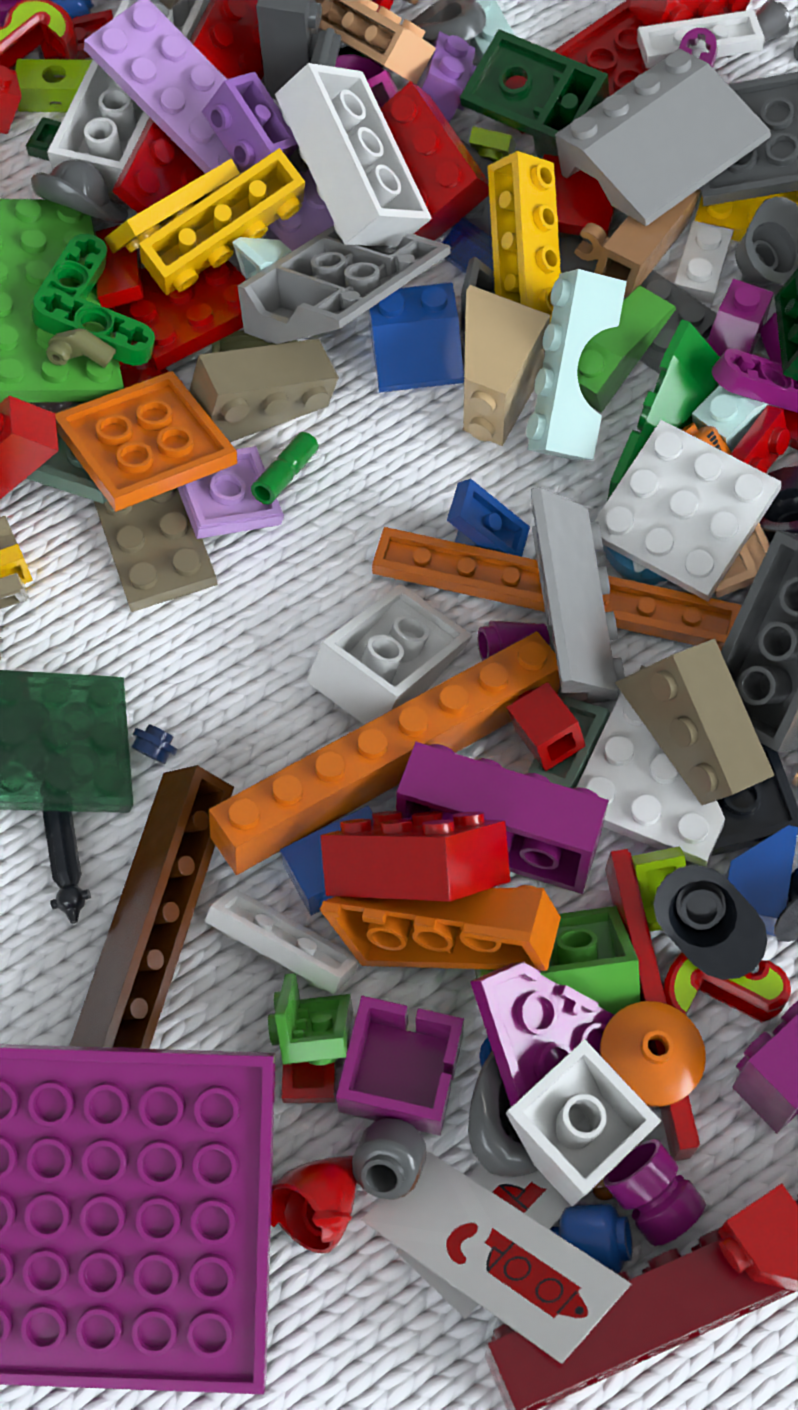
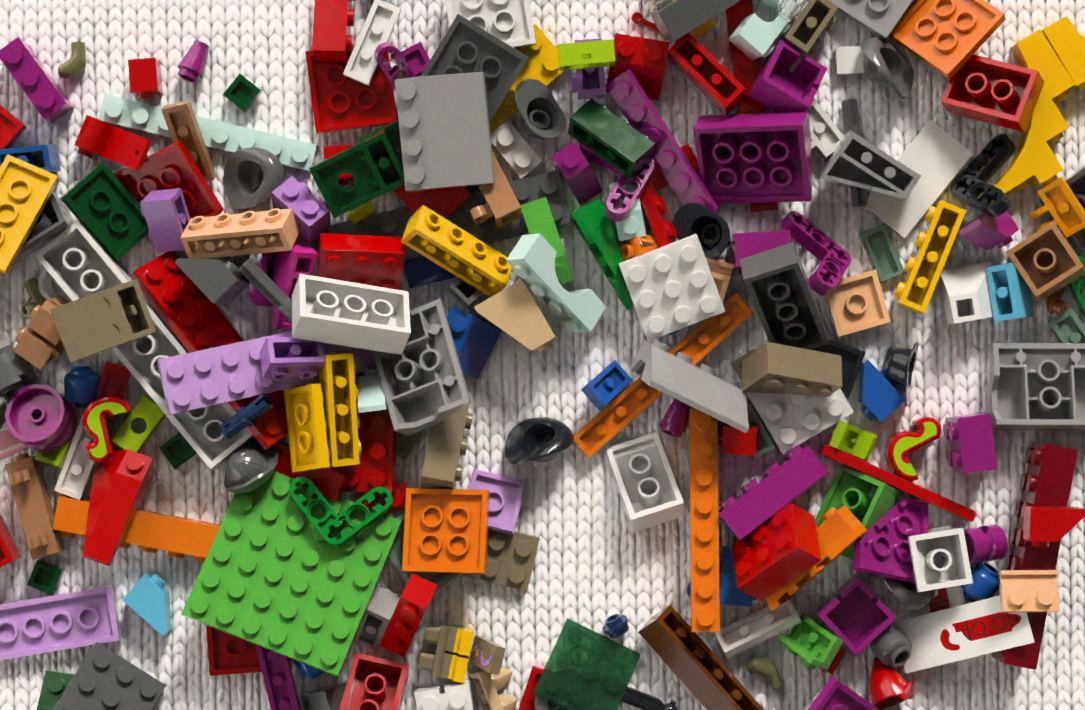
camera: 60 degrees left, 25 degrees up
(78, 343) = (369, 531): olive arm -> none
(140, 136) = (246, 416): none -> dark blue pin
(227, 996) = (767, 668): none -> olive arm
(282, 471) = (502, 466): green piece -> none
(350, 495) = (537, 440): none -> black hat
(640, 1295) = (1029, 591): none -> light nougat plate
(653, 1077) = (912, 507): orange dish -> none
(710, 922) = (889, 438): black piece -> none

